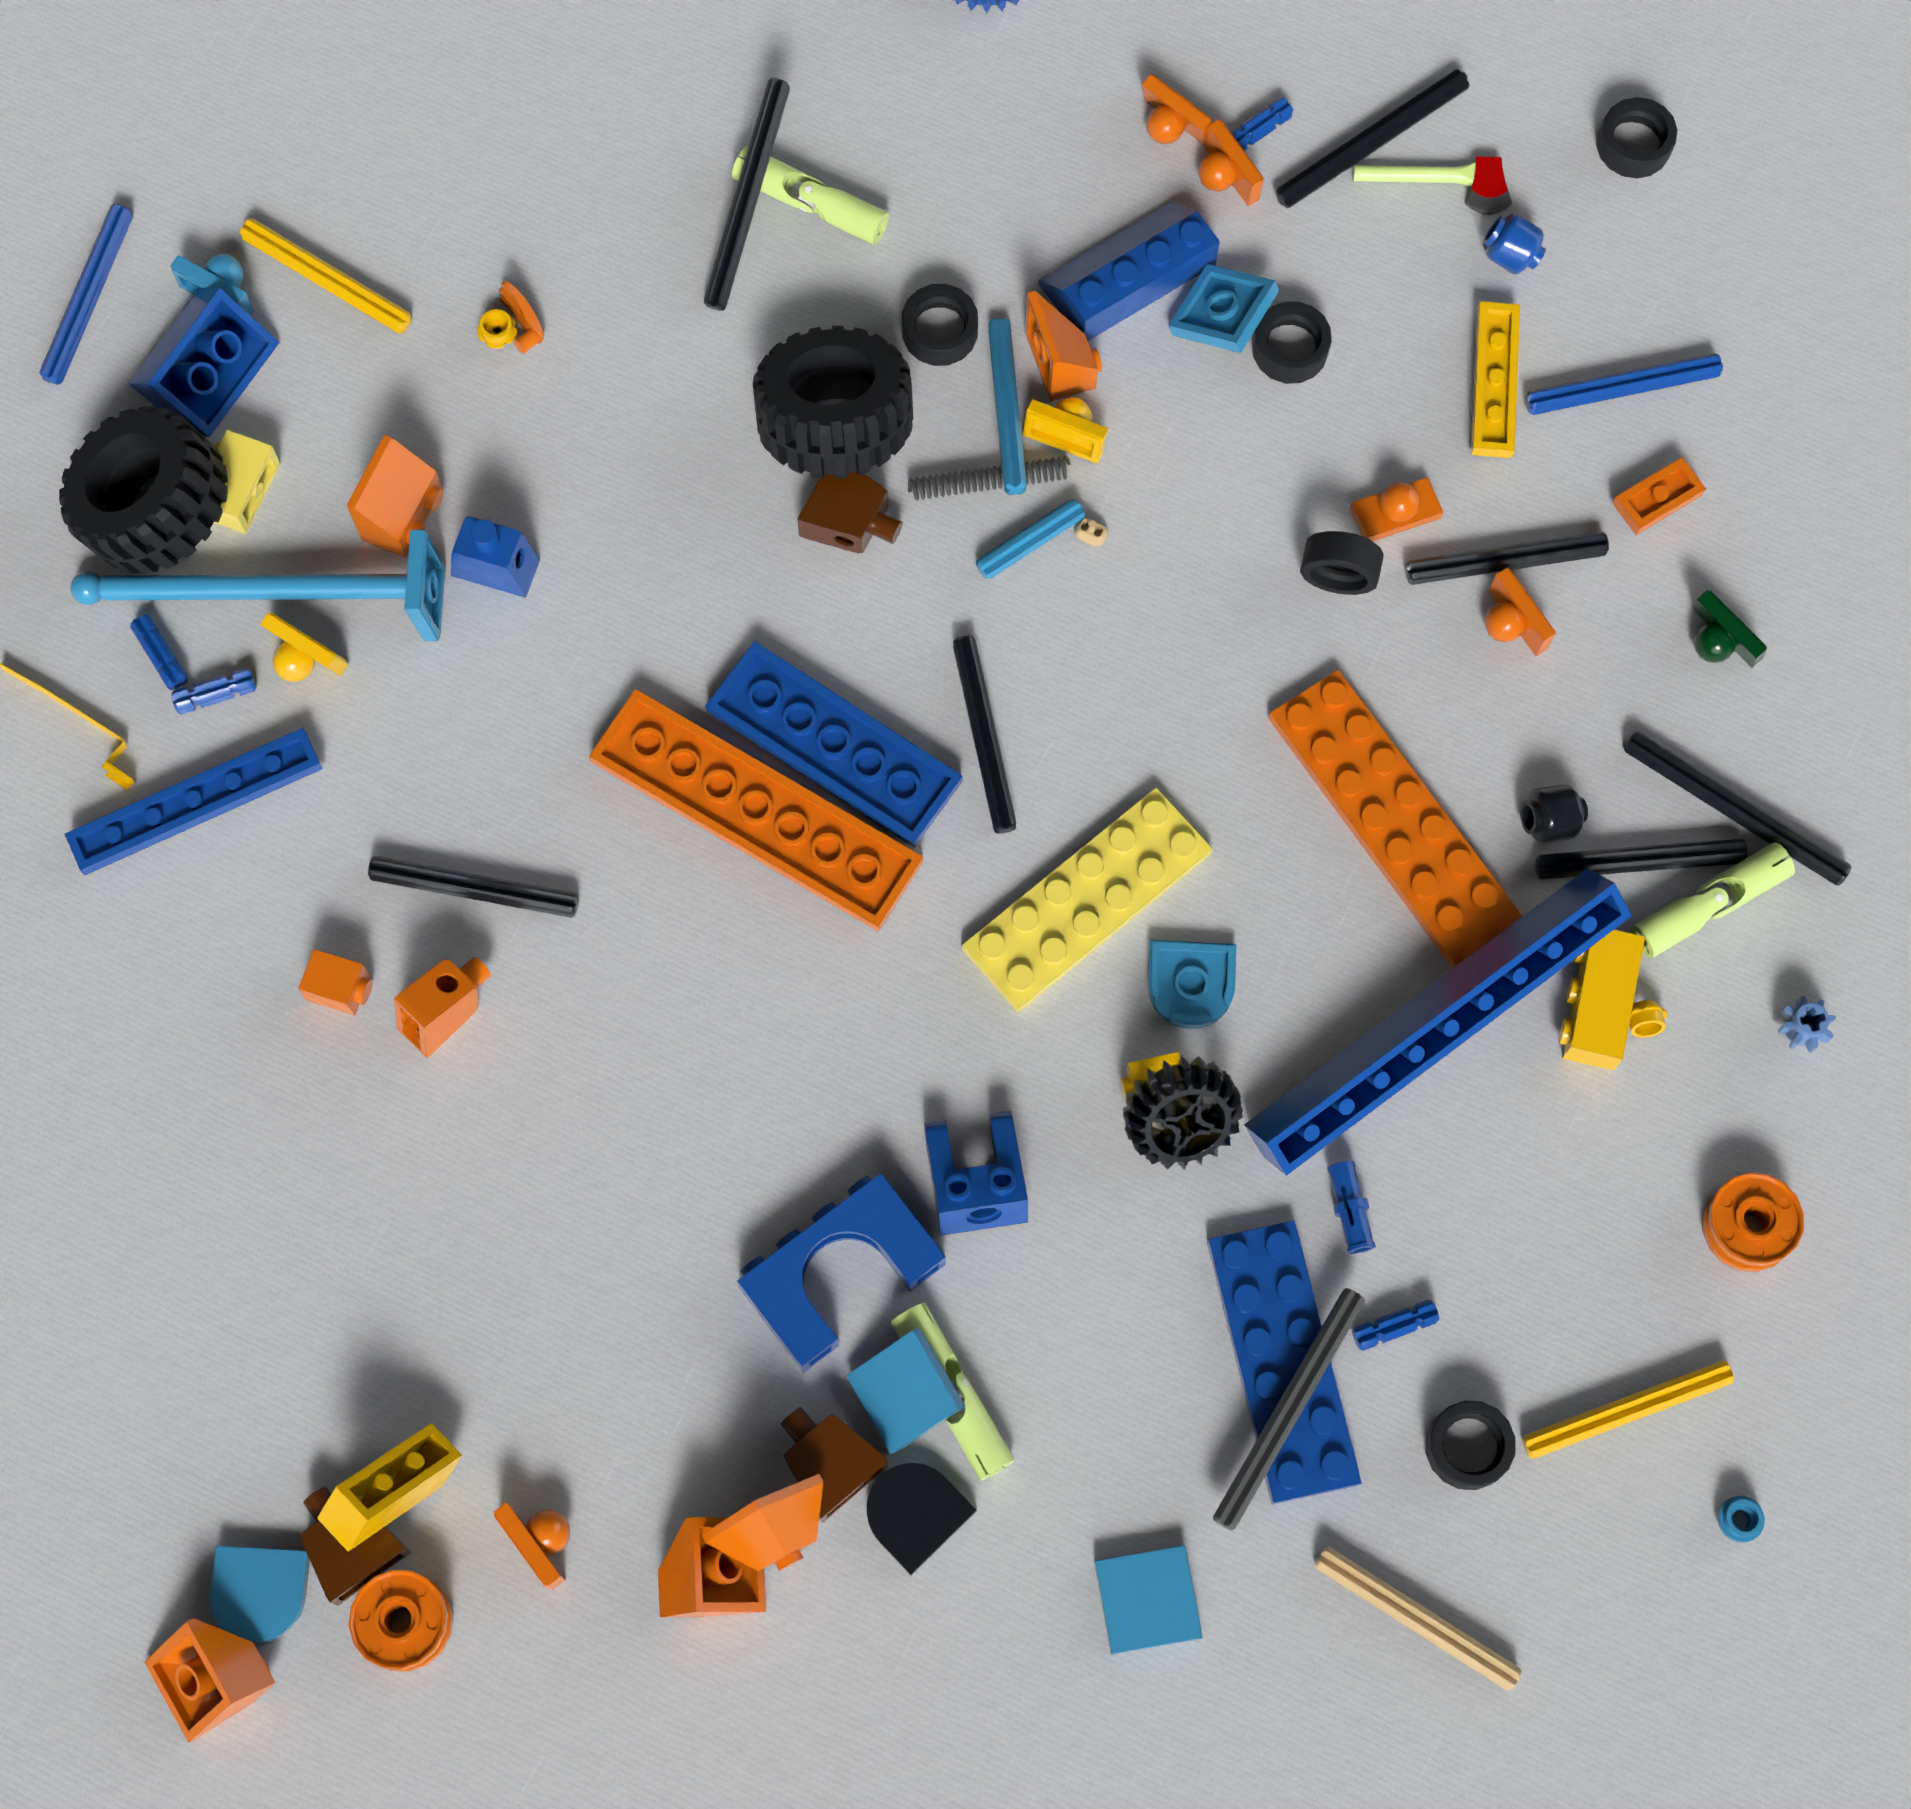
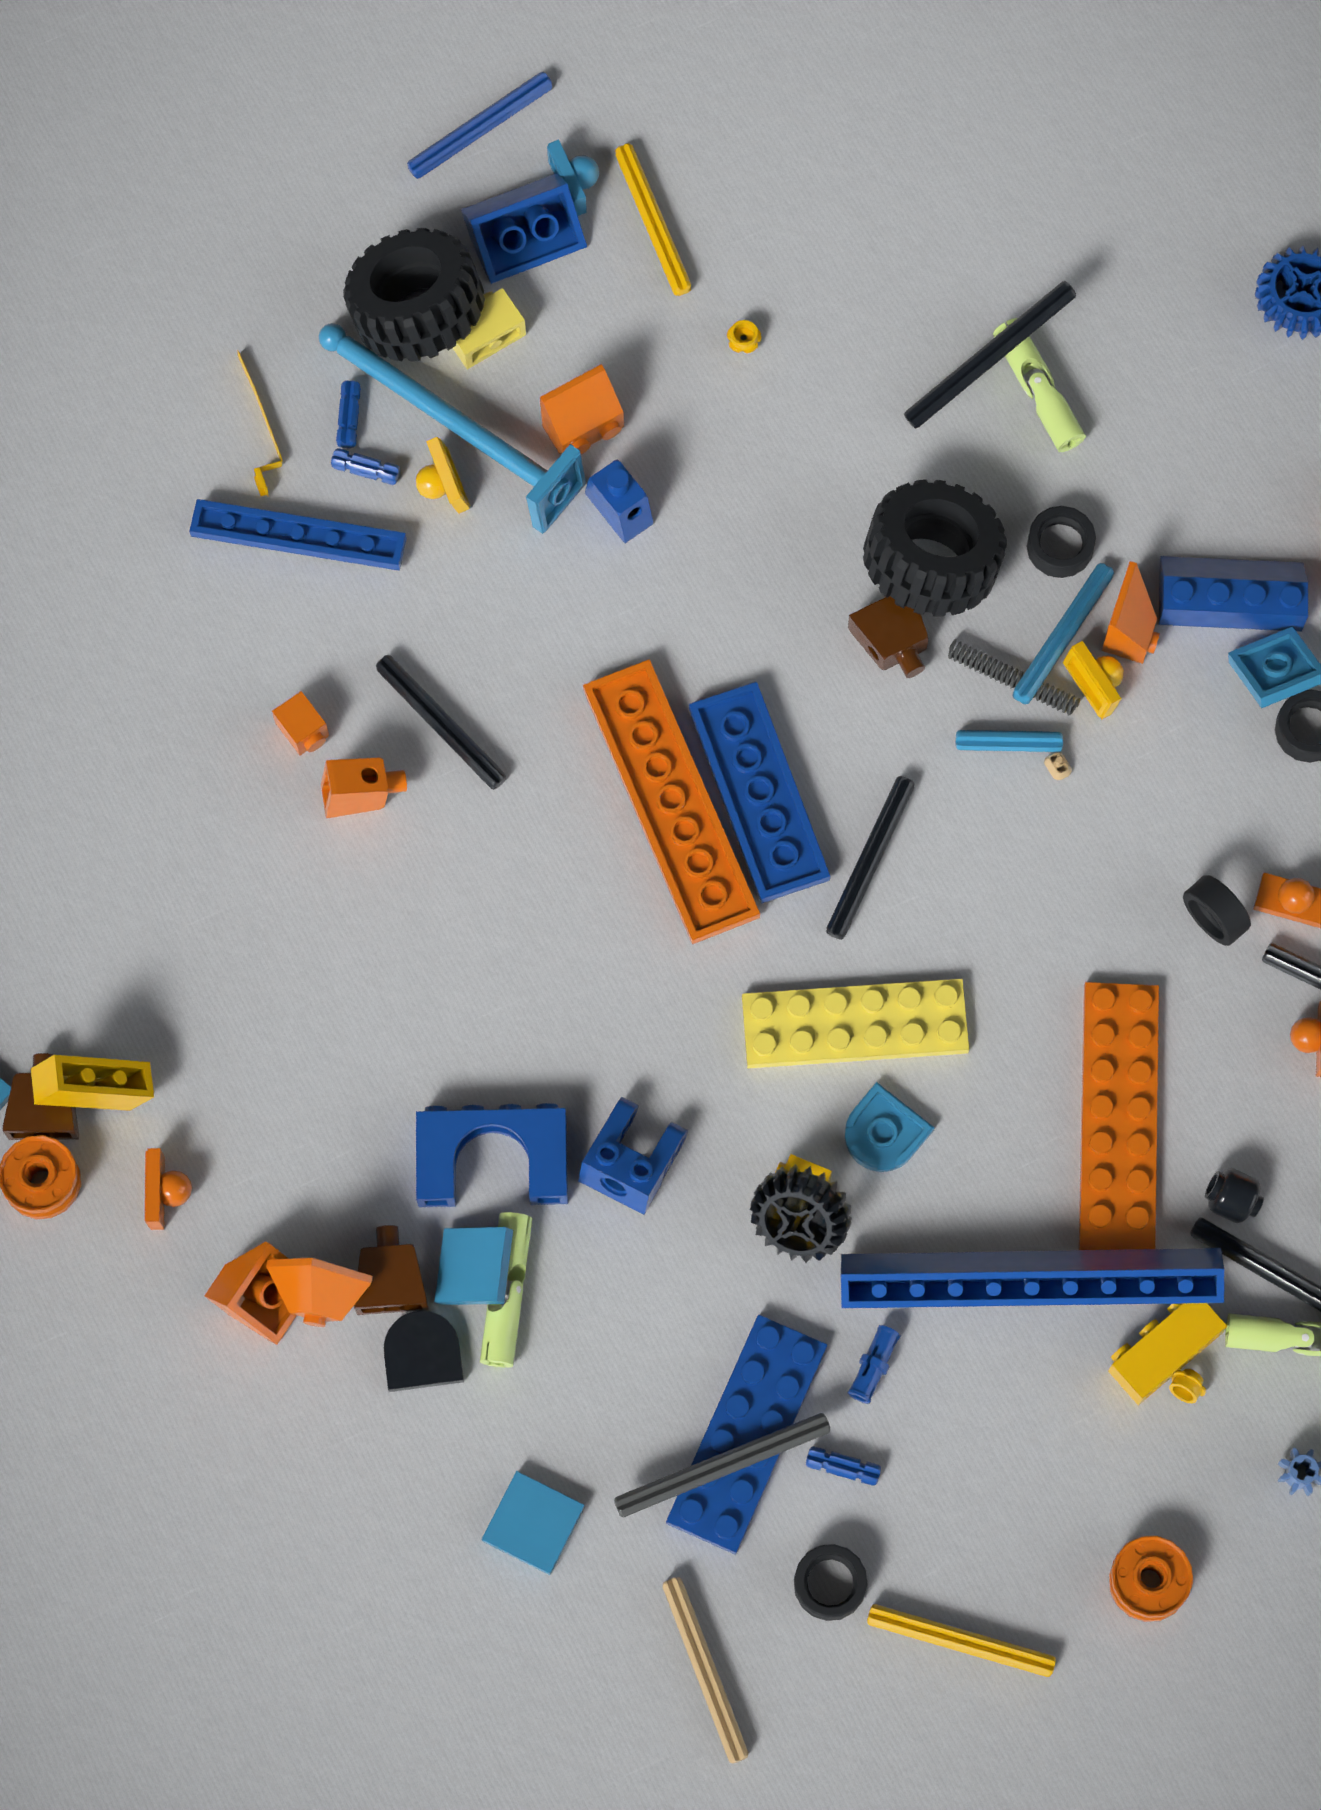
camera: 40 degrees right, 0 degrees up
(523, 312) = (768, 355): orange piece -> none
(1750, 1509) = (990, 1762): dark azure plate -> none

